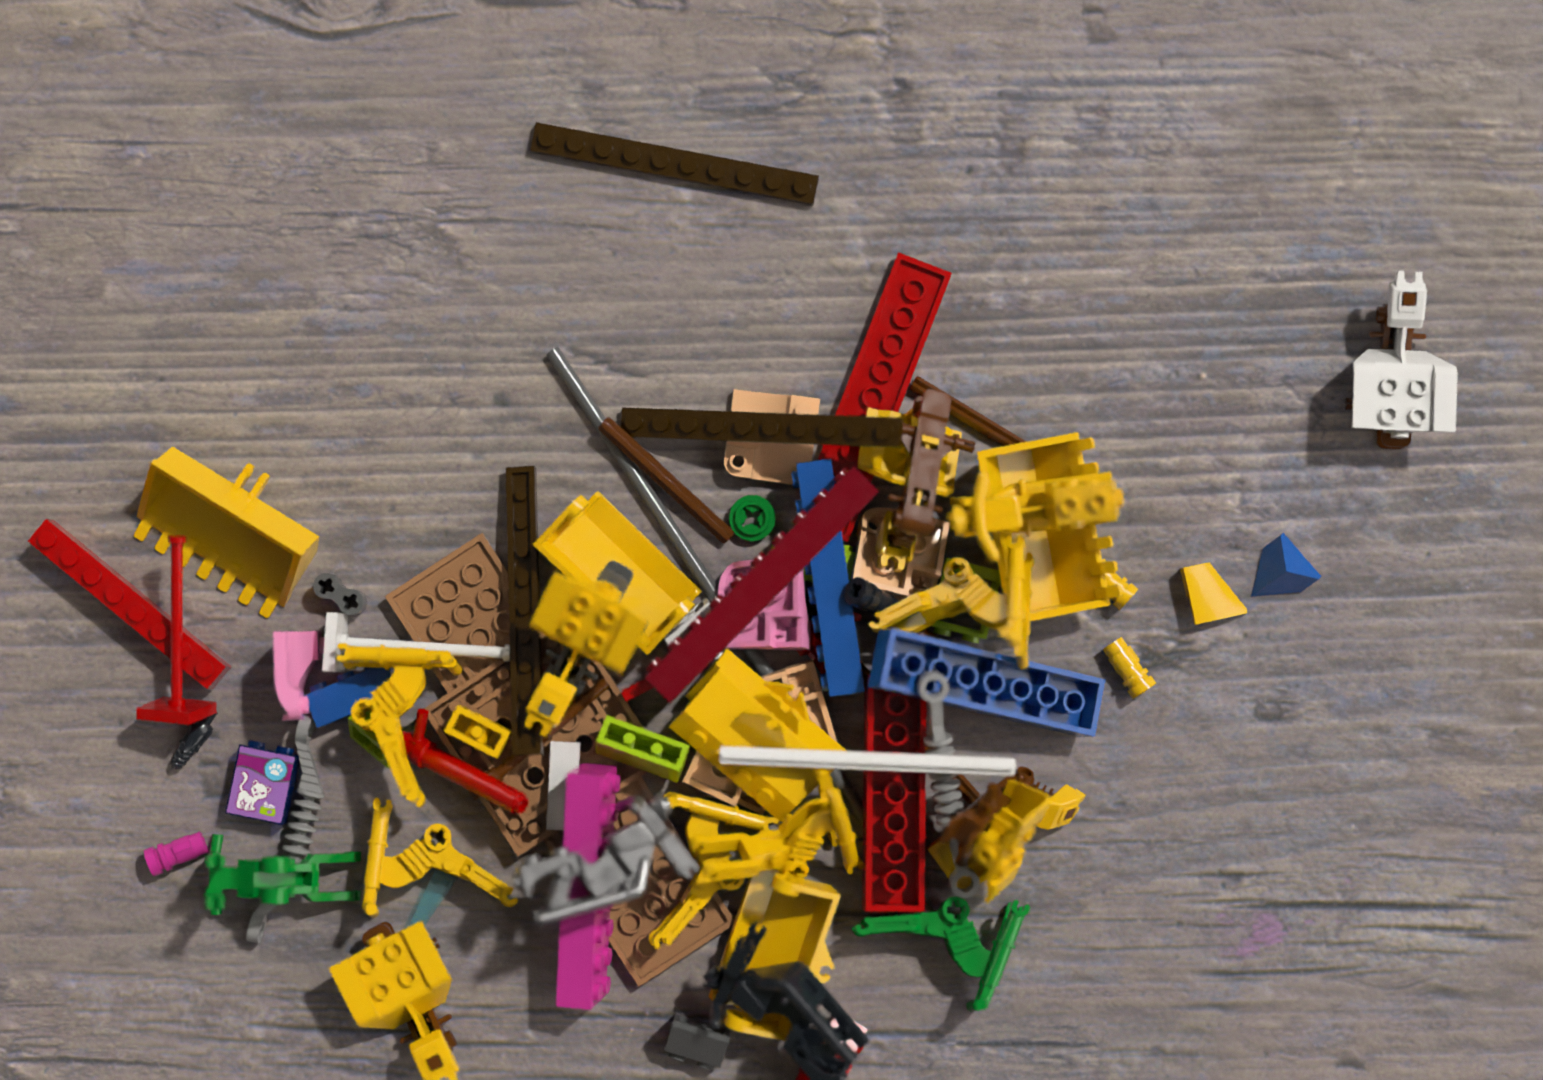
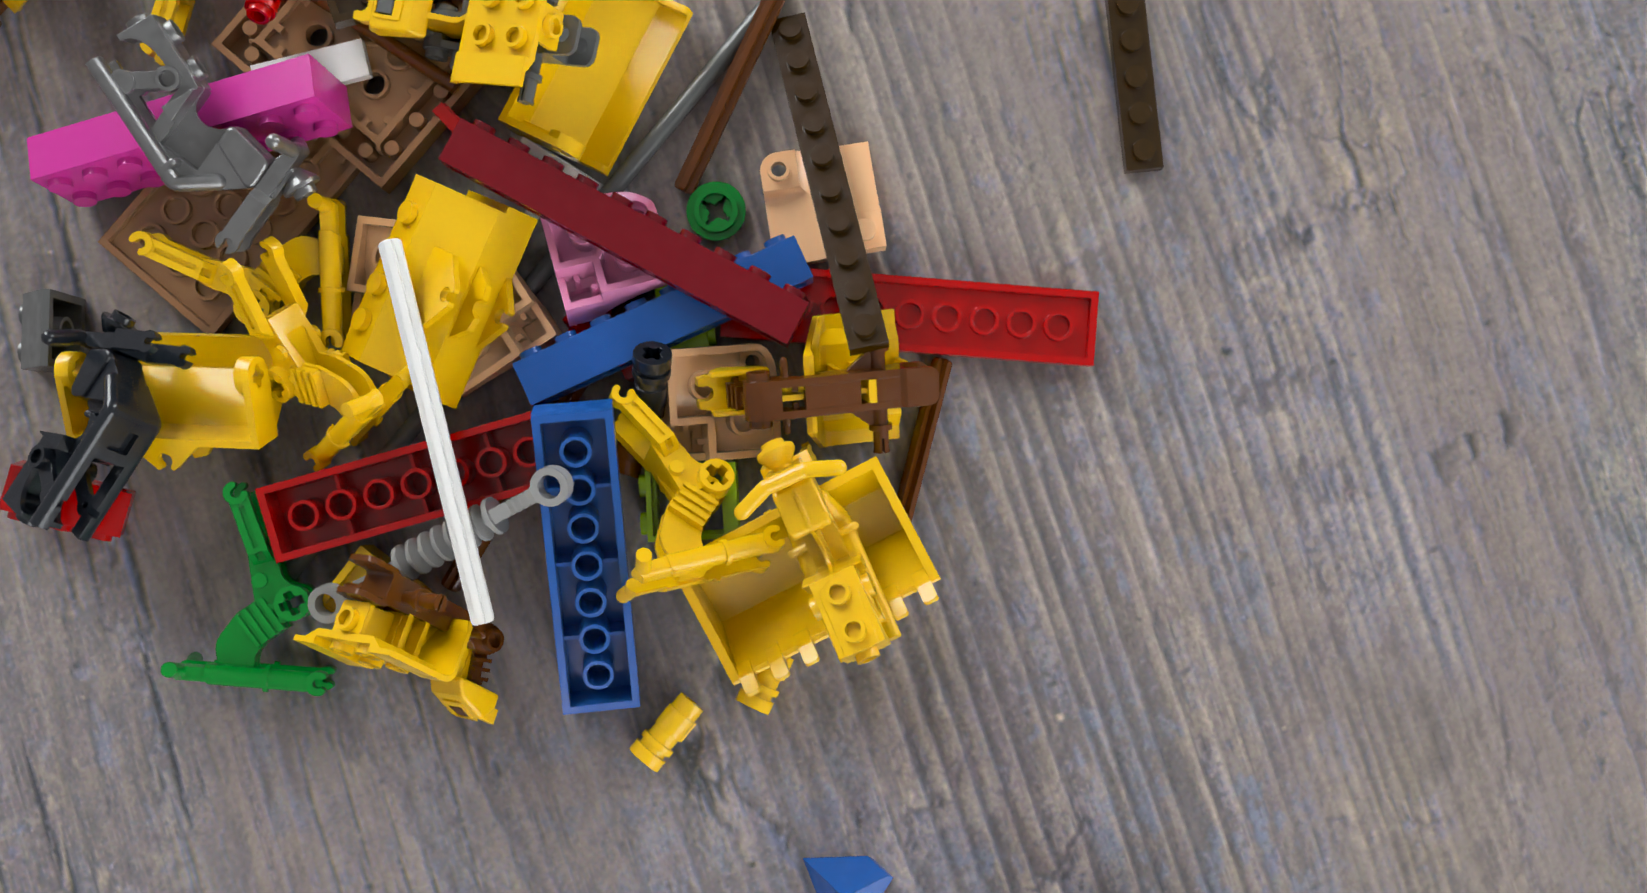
camera: 80 degrees right, 0 degrees up
(642, 749) = (380, 149): lime brick -> none
(1209, 594) = (788, 806): yellow slope -> none

